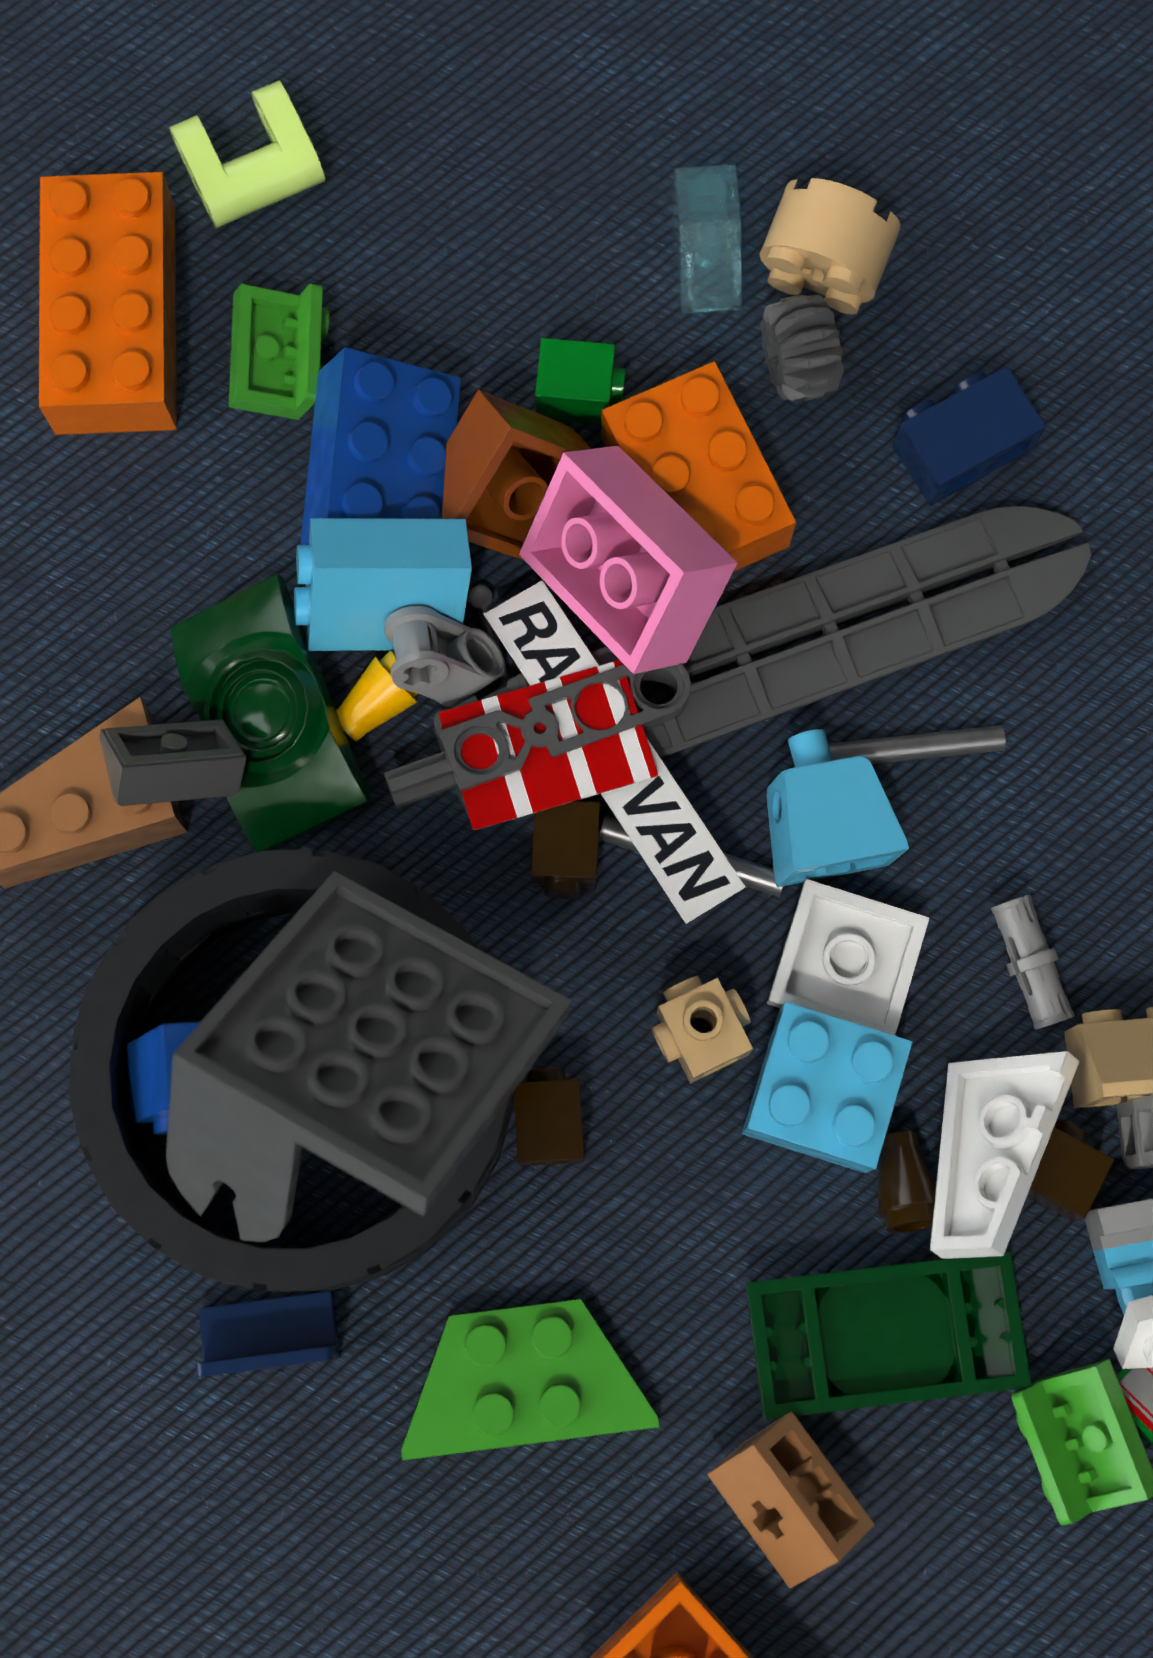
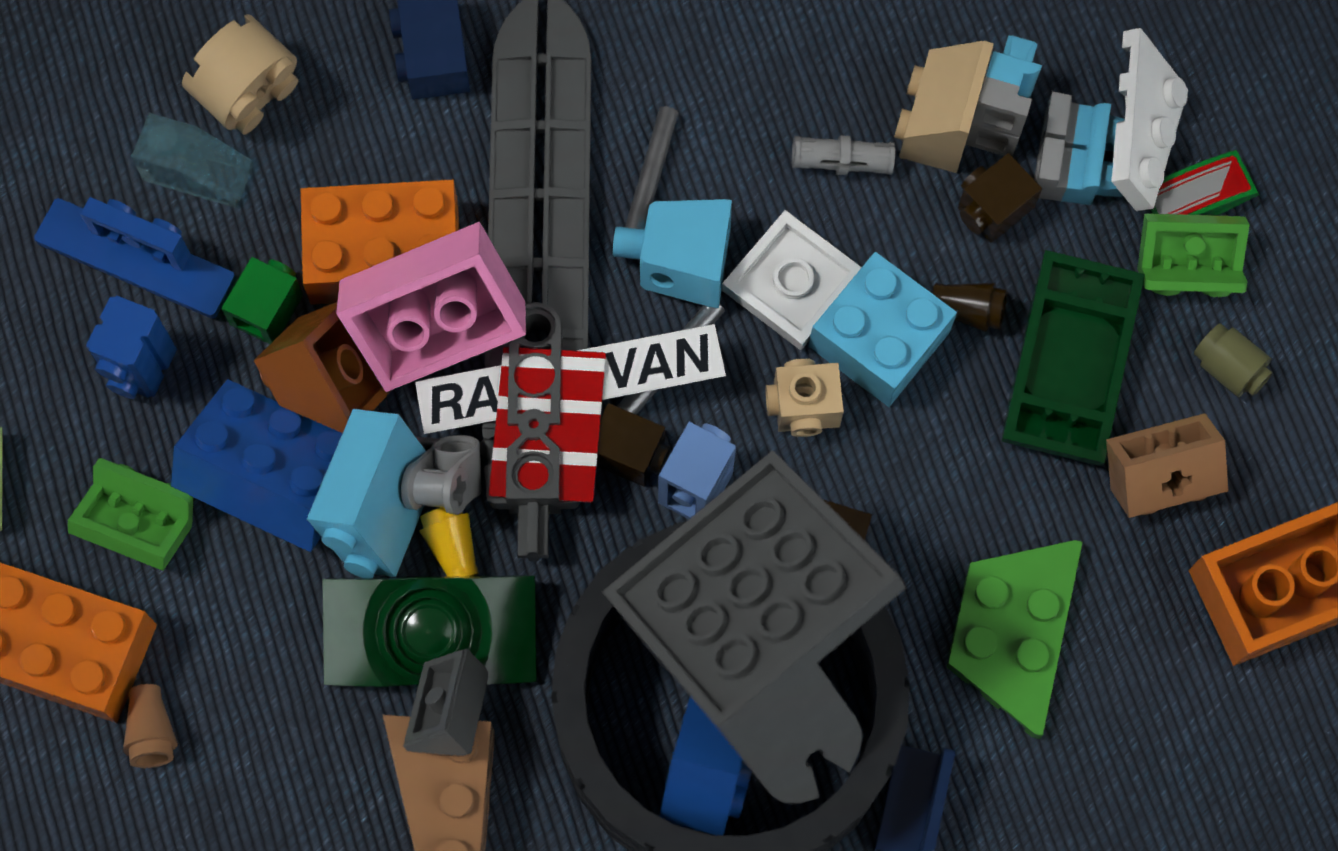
camera: 70 degrees left, 5 degrees down
(54, 465) = (148, 731): none -> medium nougat cone
(454, 263) = (131, 348): none -> blue brick
(555, 934) = (696, 469): none -> medium blue brick
(575, 228) = (136, 252): none -> blue bracket
(802, 347) = (314, 125): dark grey gear -> none
(967, 1540) = (1234, 360): none -> olive brick
(991, 1147) = (968, 229): white wing -> none

